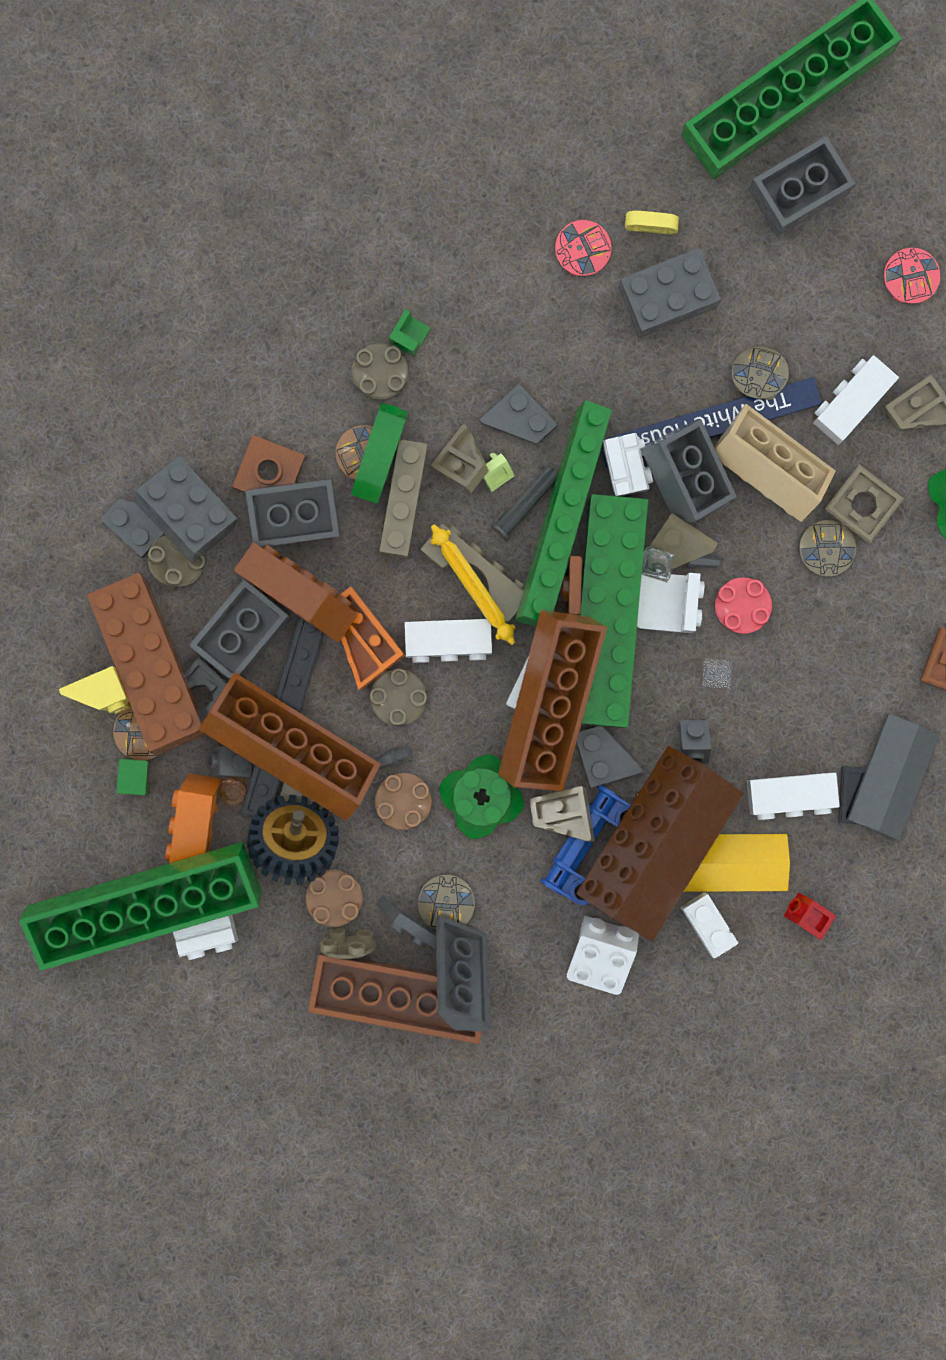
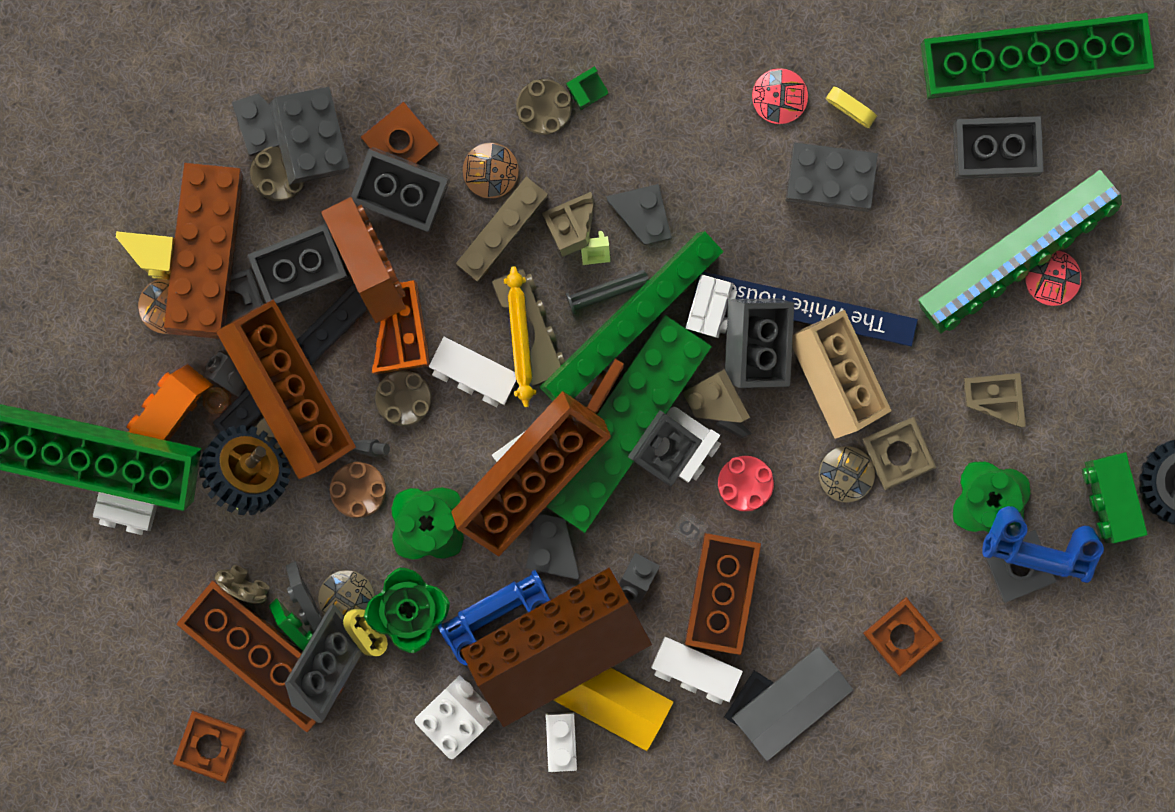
camera: 30 degrees right, 0 degrees up
(133, 777) = (137, 341): green panel -> none
(334, 898) = (252, 540): medium nougat dish -> none
(379, 453) = (503, 178): green arch -> none
(382, 1120) = (188, 752): none -> dark orange piece
(410, 955) = (290, 624): none -> green wing
(482, 920) = (362, 635): none -> light yellow beam
(521, 902) = (385, 616): none -> green brick
(564, 813) = (490, 576): wing -> none
(657, 564) = (689, 406): clear tile -> none
(670, 605) = (681, 449): none -> dark grey piece
(760, 373) = (872, 290): dark tan dish -> none
(779, 714) = (722, 594): none -> dark orange brick
(809, 915) = (653, 782): red bracket -> none
(854, 399) = (941, 357): white brick -> none
(872, 267) = (1020, 252): none -> brick

